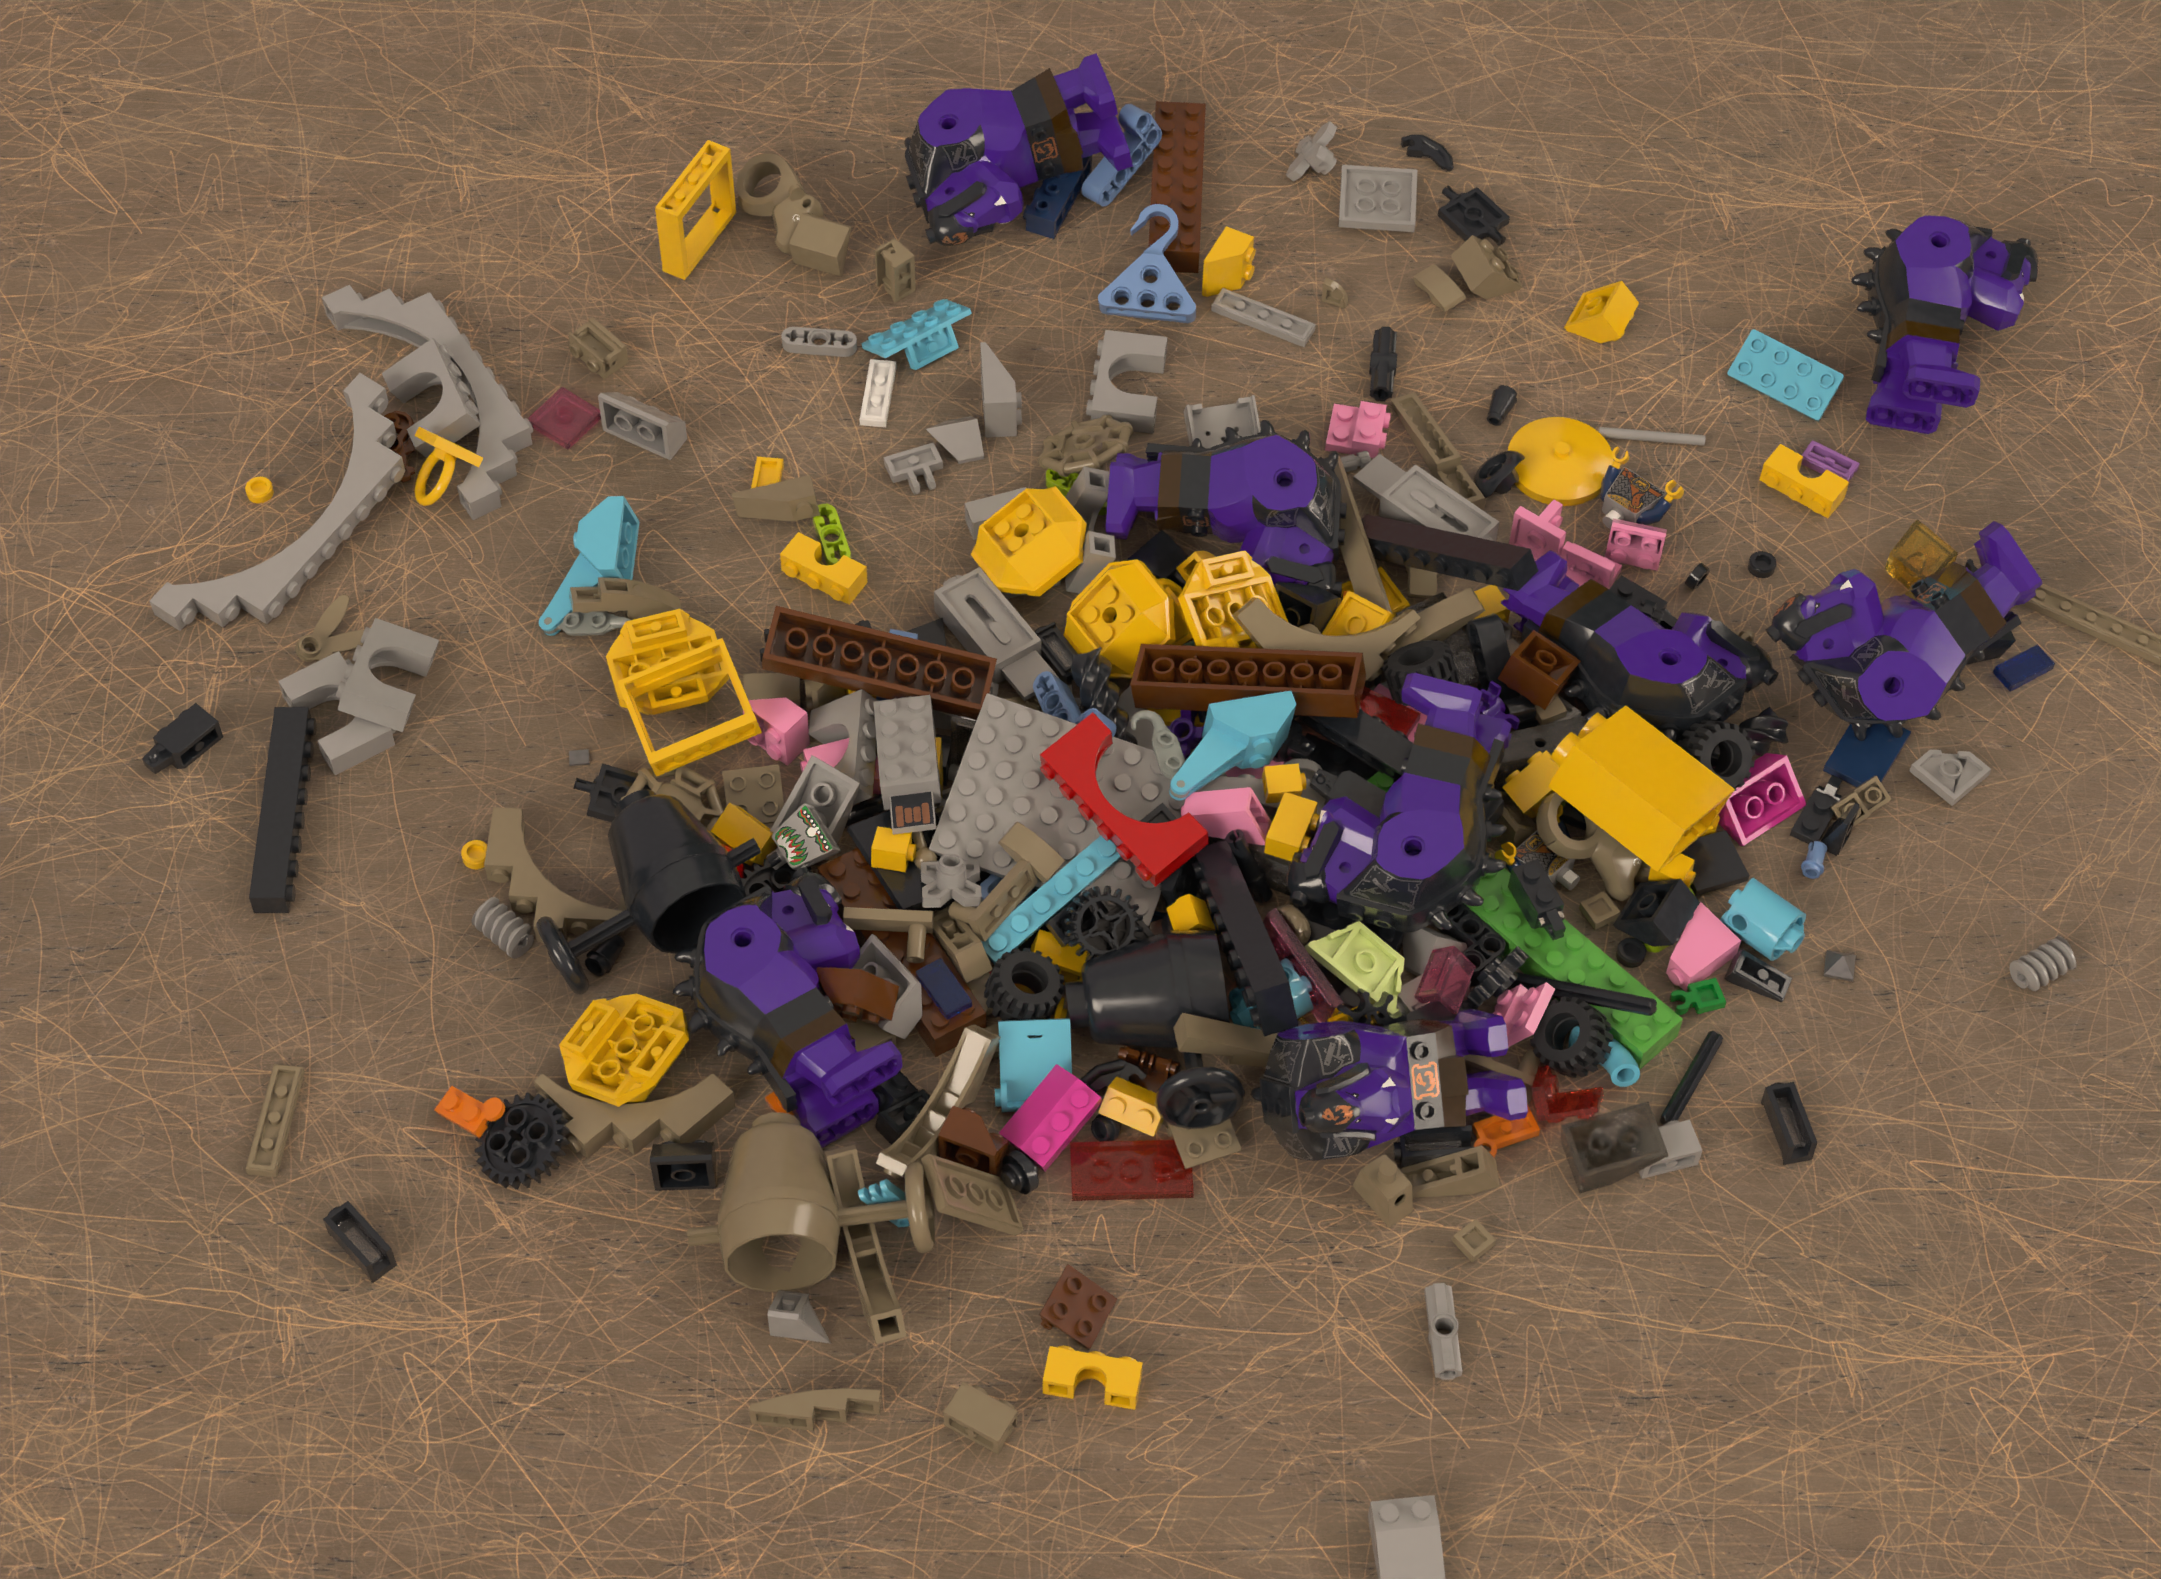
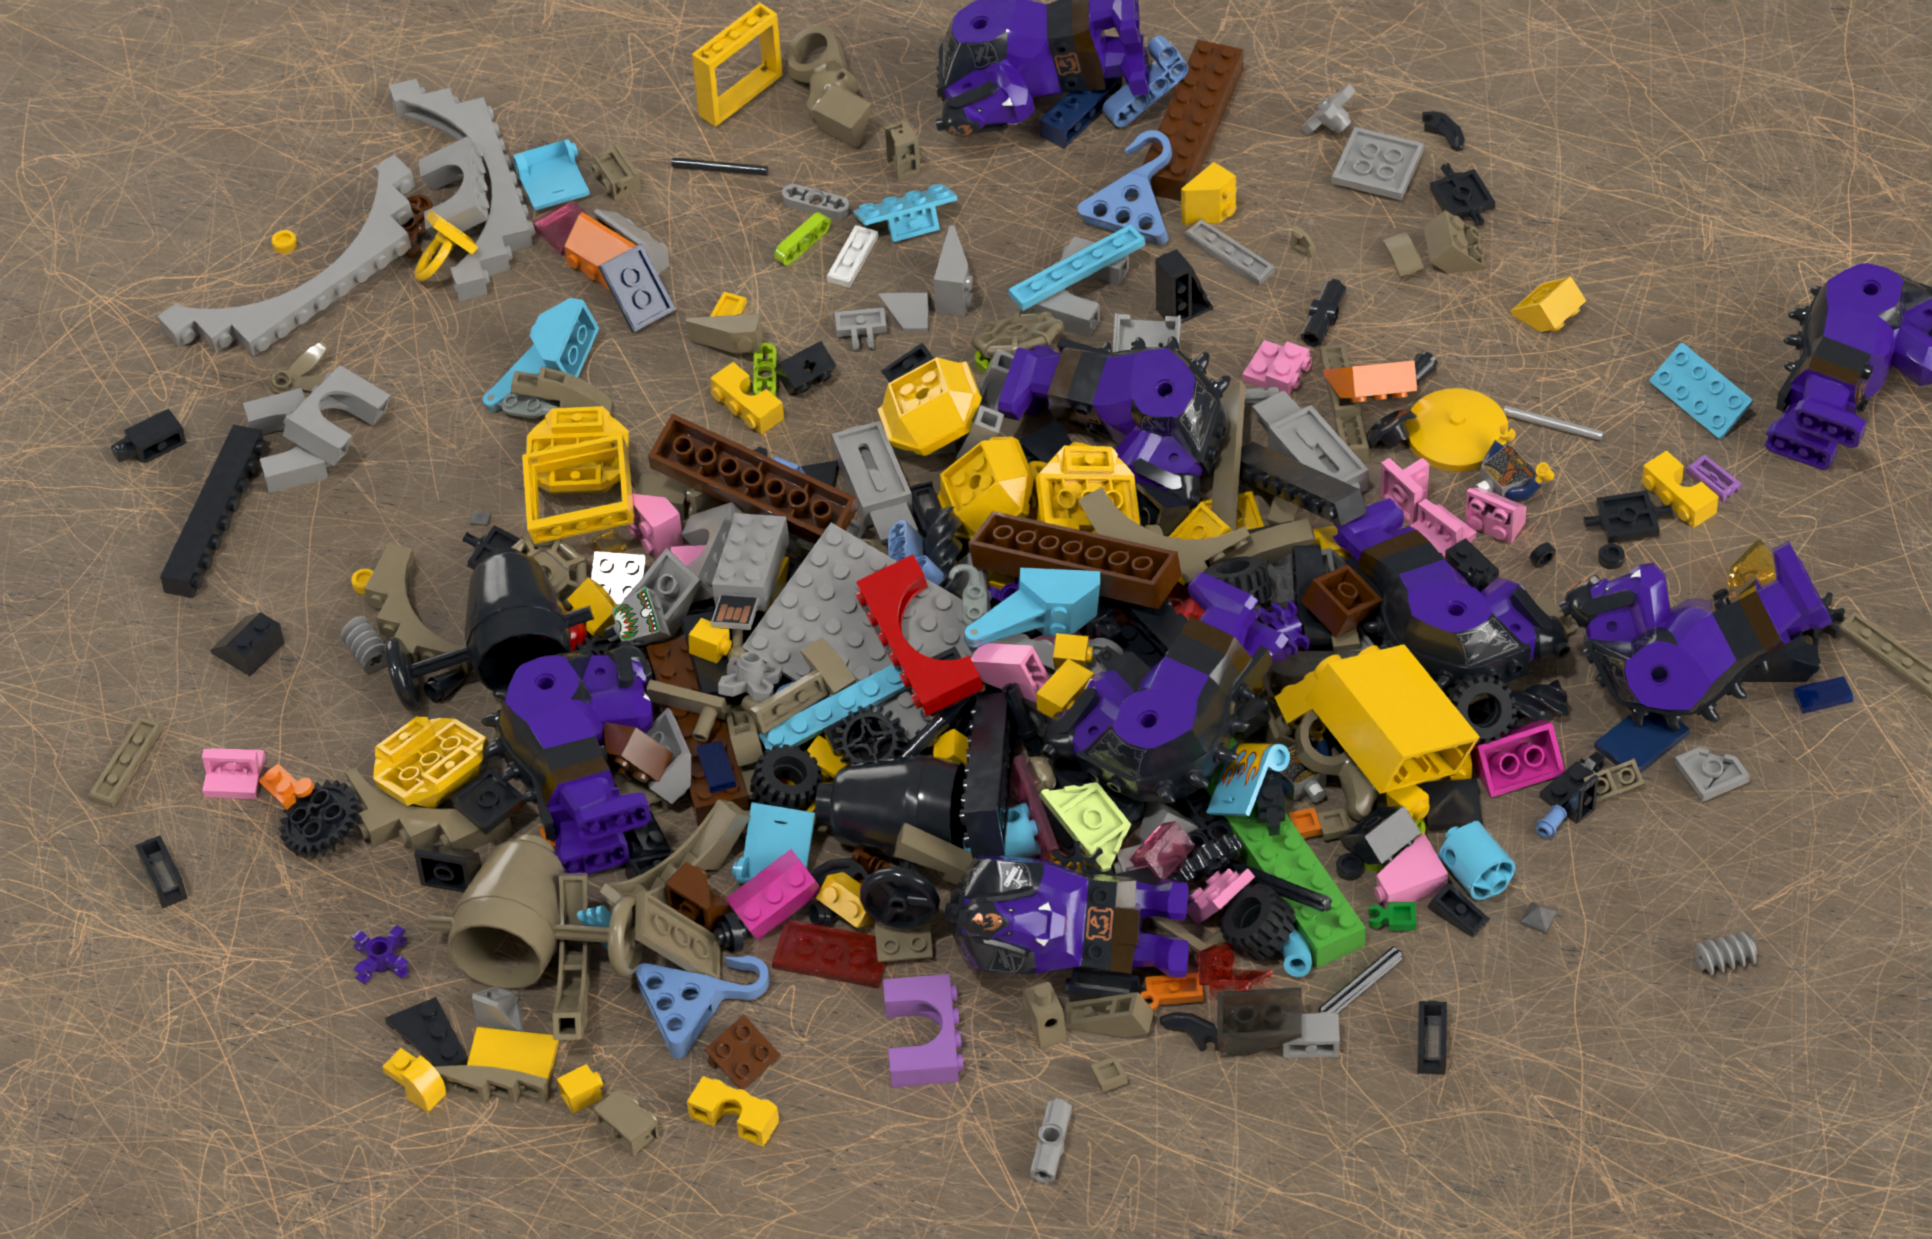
camera: 20 degrees right, 5 degrees down
(371, 951) = (250, 643): none -> black slope
(402, 1107) = (232, 772): none -> bright pink bracket
(527, 363) = (550, 174): none -> medium azure door
(617, 441) = (593, 245): none -> orange slope
(642, 1272) = (383, 946): none -> dark purple pin
(667, 470) = (636, 287): none -> tile
(706, 1081) = (487, 800): none -> black plate
(708, 321) = (720, 166): none -> black bar
(727, 1363) = (429, 1032): none -> black wing
(731, 758) = (609, 542): none -> clear yellow tile
(735, 1420) = (419, 1078): none -> yellow brick
(820, 384) = (802, 238): none -> lime beam
(826, 1364) = (514, 1051): none -> yellow tile
(866, 535) = (815, 358): none -> black brick
(916, 1390) = (580, 1088): none -> yellow brick
(988, 501) = (911, 360): none -> black slope
(1006, 1276) = (691, 1016): none -> medium blue piece
(1123, 363) = (1076, 267): none -> medium azure plate
(1158, 911) = (924, 737): none -> black pin
(1235, 366) = (1179, 288): none -> black wedge
(1263, 1198) = (938, 1059): none -> medium lavender arch
(1464, 425) = (1373, 380): none -> slope
(1513, 886) = (1243, 777): none -> medium azure door
(1543, 1166) = (1196, 1027): none -> black piece
(1576, 914) = (1306, 822): none -> orange plate
(1764, 519) = (1627, 516): none -> black plate

